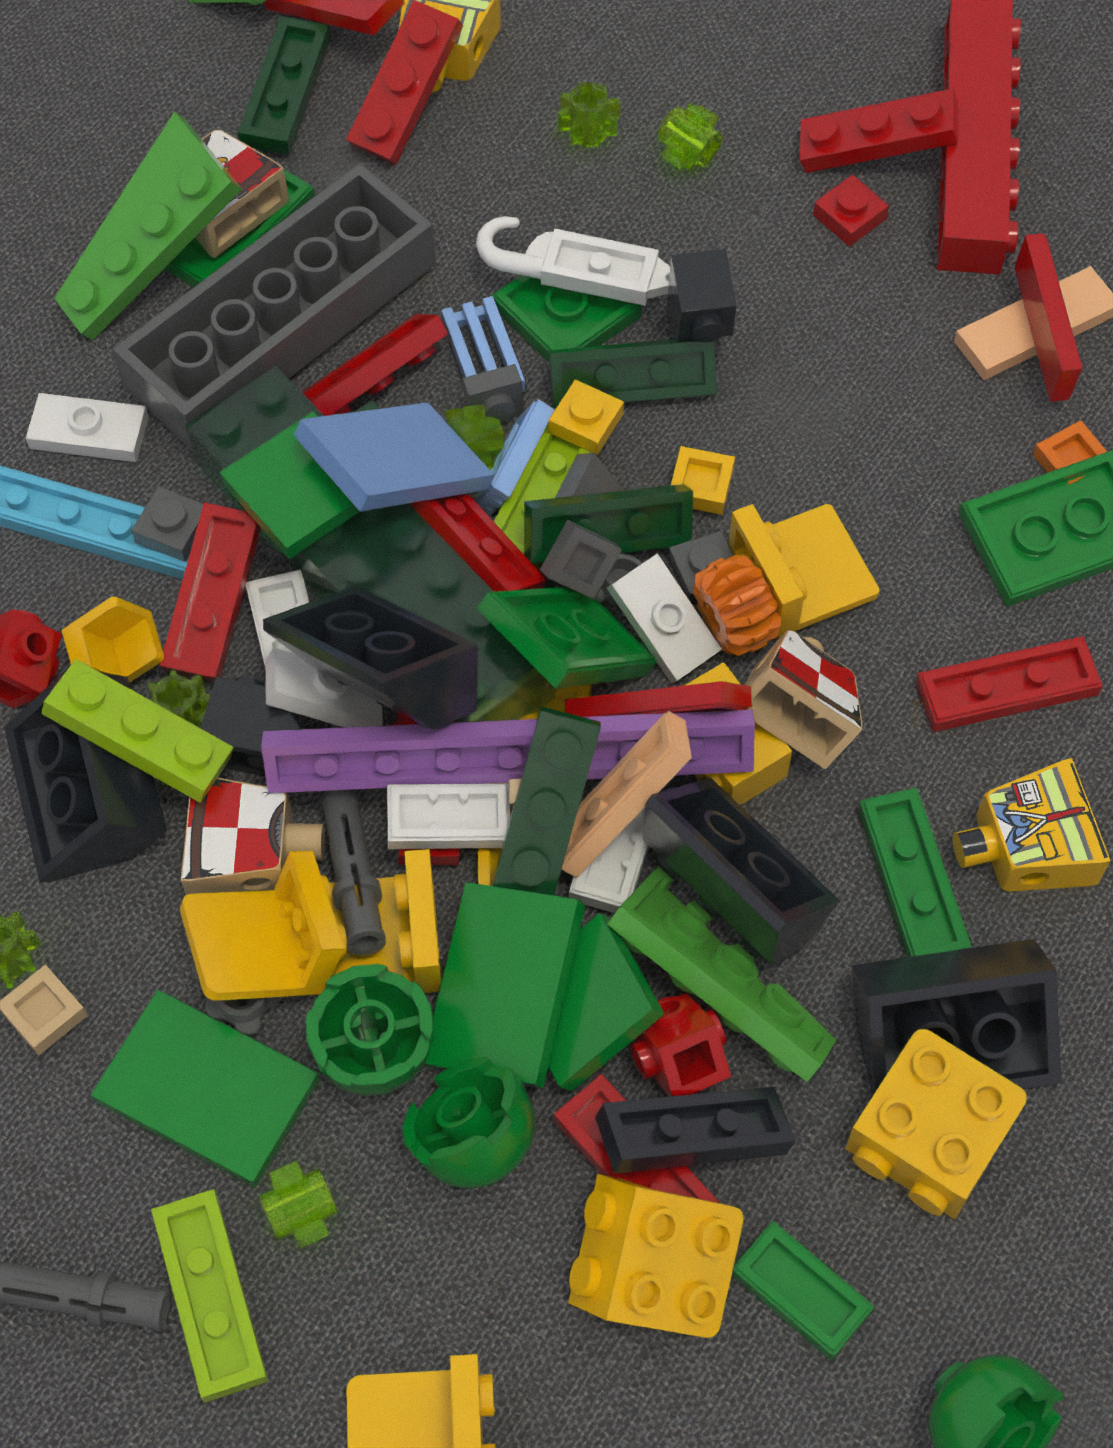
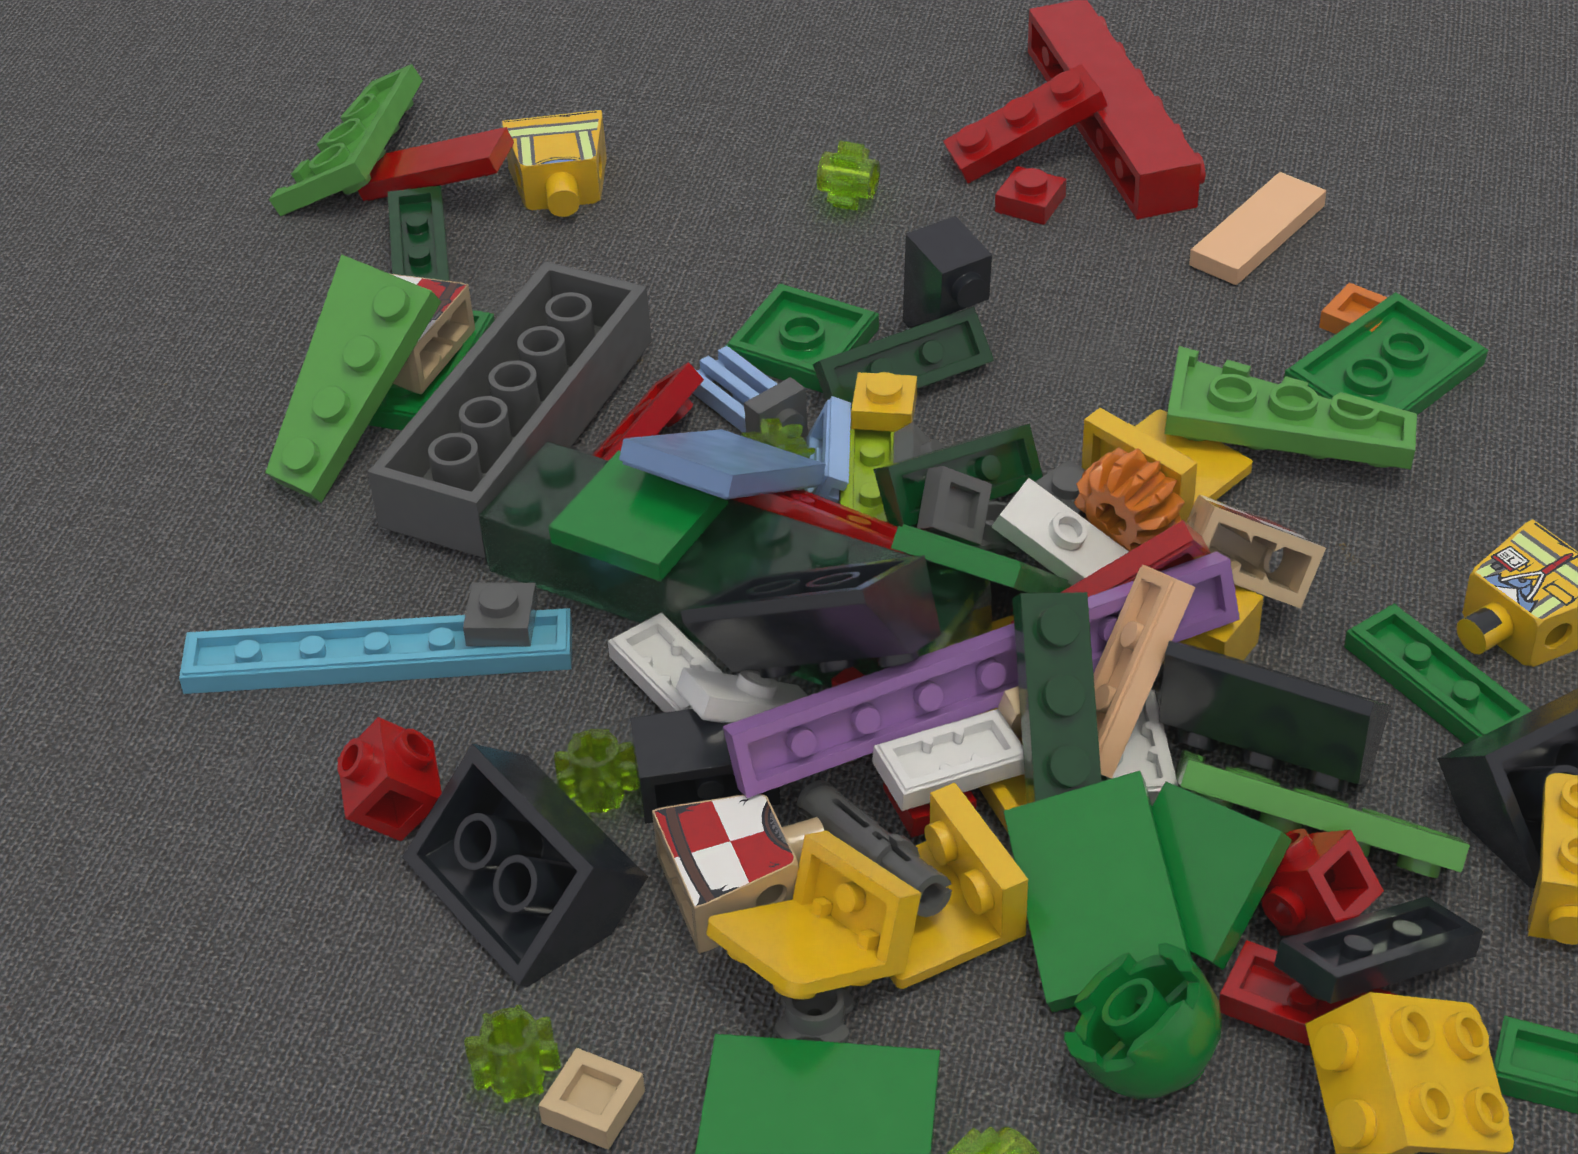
camera: 20 degrees left, 20 degrees down
(87, 427) = (357, 570): white plate -> none
(115, 639) = (495, 718): yellow panel -> none
(137, 730) = (579, 776): lime plate -> none
(211, 592) = (578, 652): red plate -> none
(370, 1030) = (986, 974): green cylinder -> none
(404, 82) = (545, 200): red plate -> none
(580, 263) = (804, 289): white plate -> none
(588, 114) = (738, 186): clear neon green gear -> none
(707, 475) = (1024, 411): yellow plate -> none
(912, 548) = (1285, 416): none -> bright green wing
(1008, 684) = (1420, 500): red tile -> none
(1048, 317) = (1274, 208): red tile -> none

